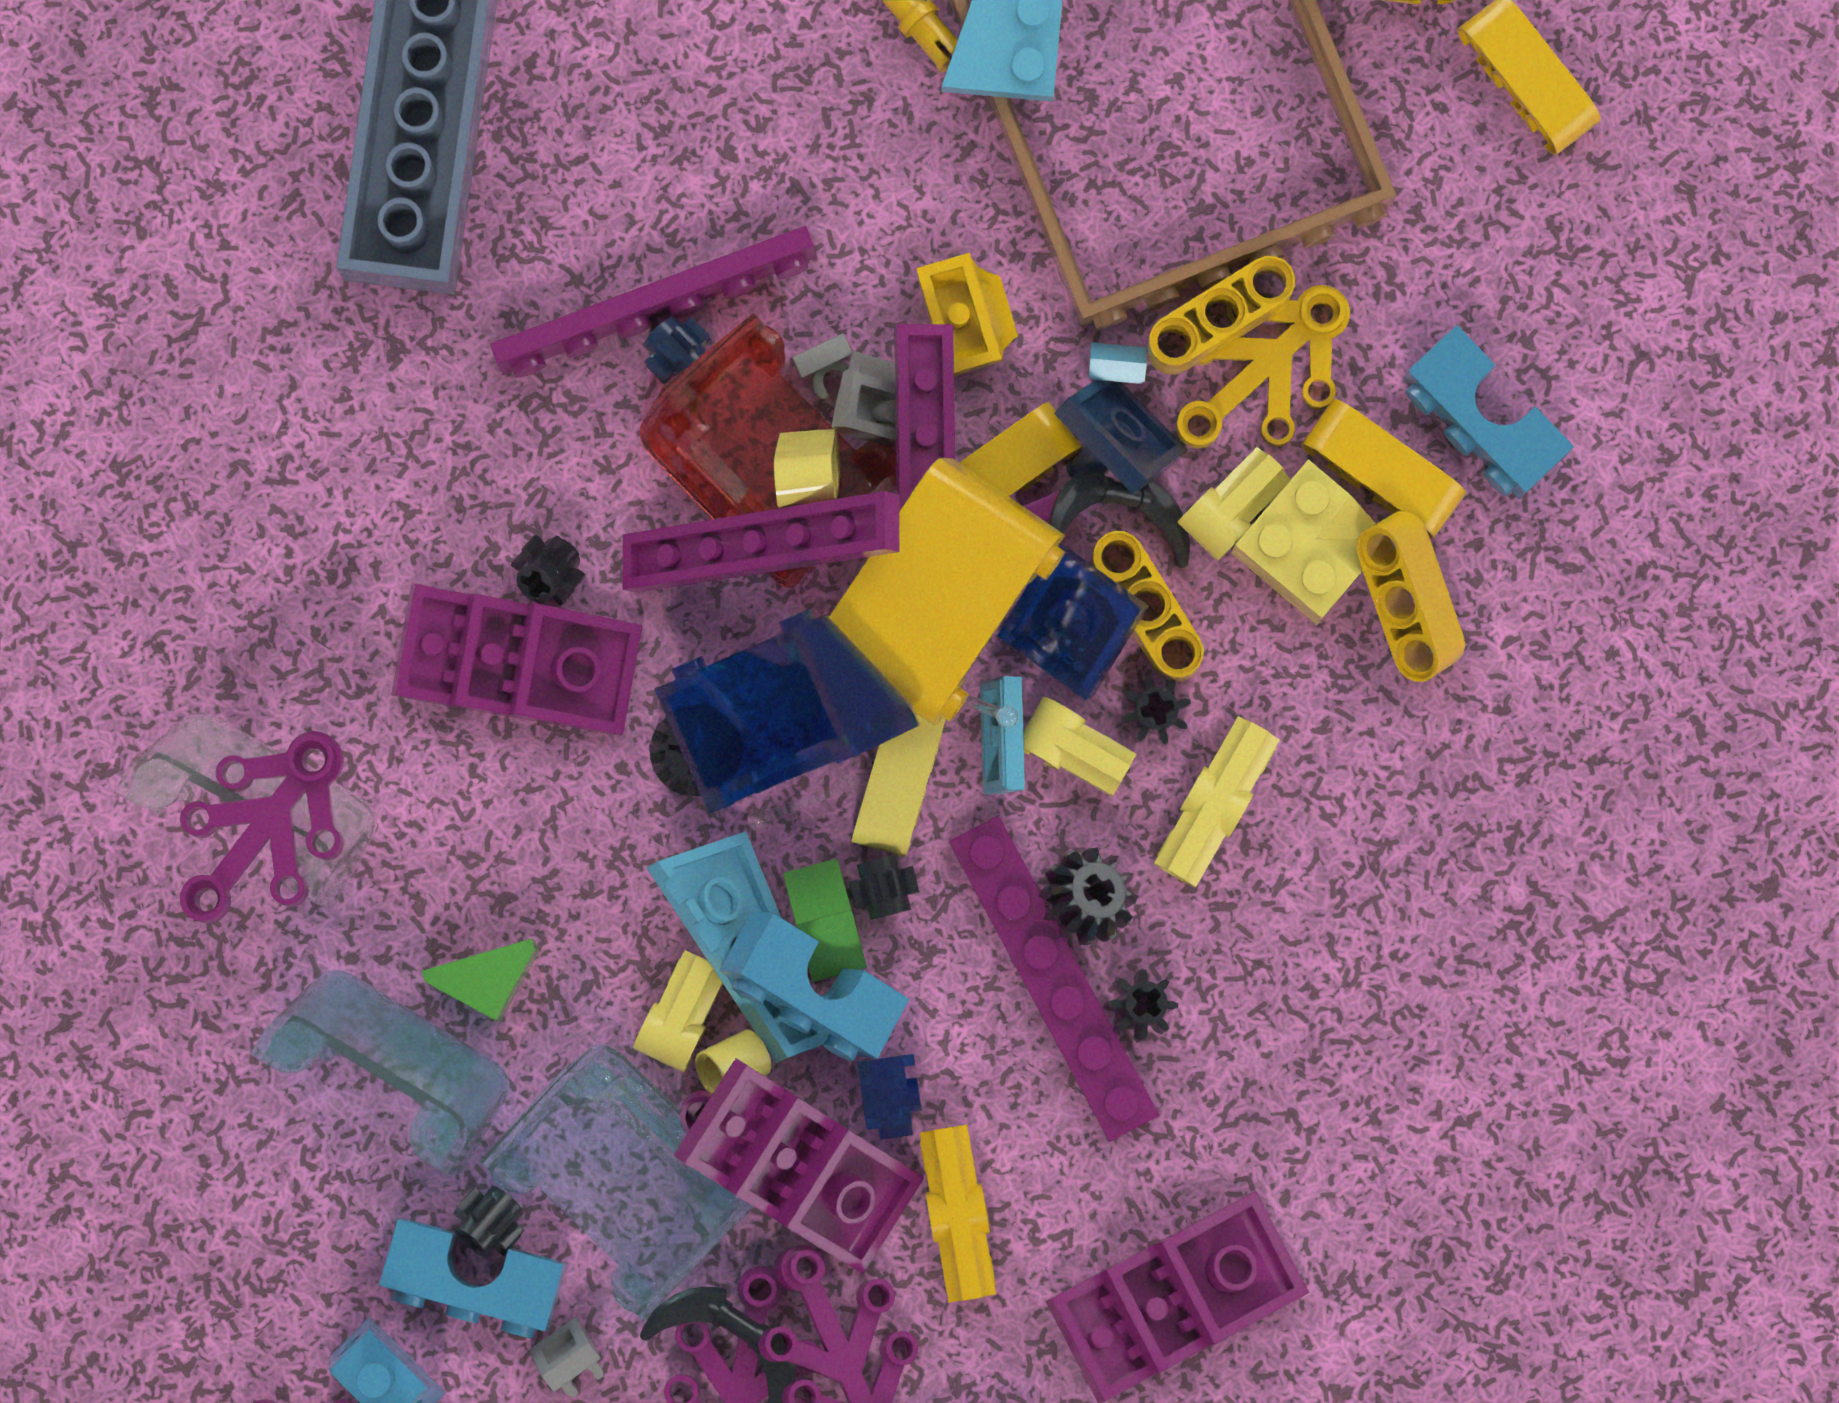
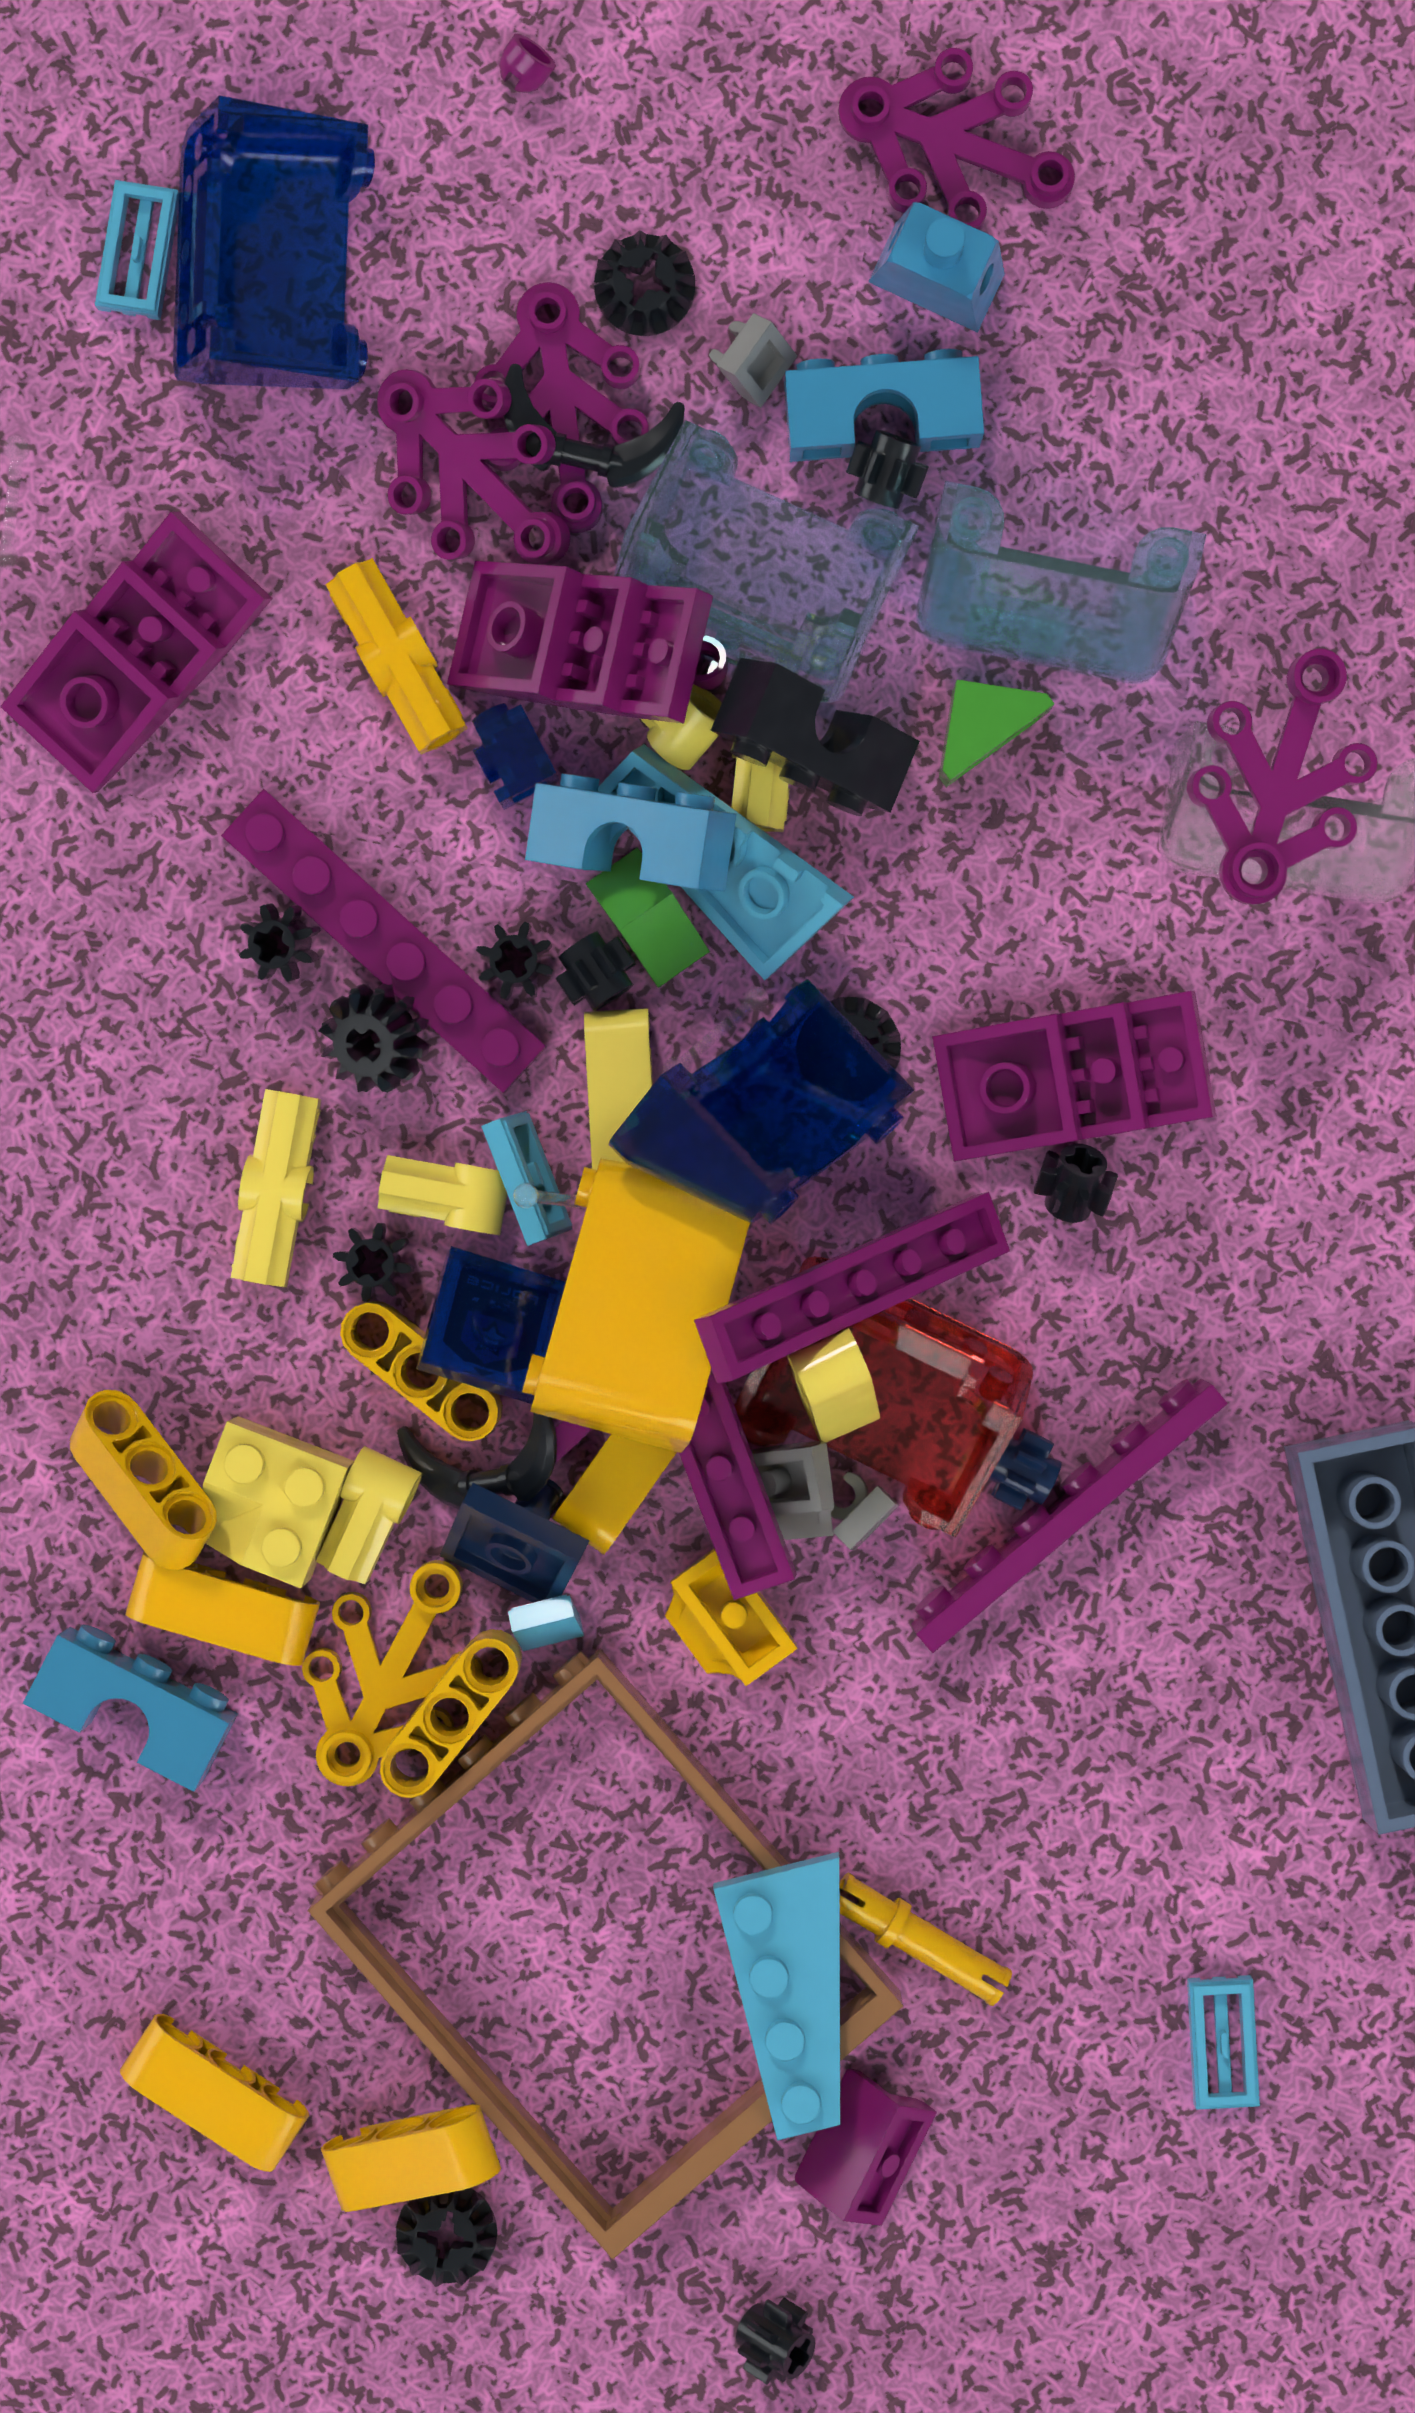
camera: 155 degrees right, 5 degrees up
(657, 1035) = (772, 719): none -> black arch
(958, 907) = (498, 957): none -> black gear

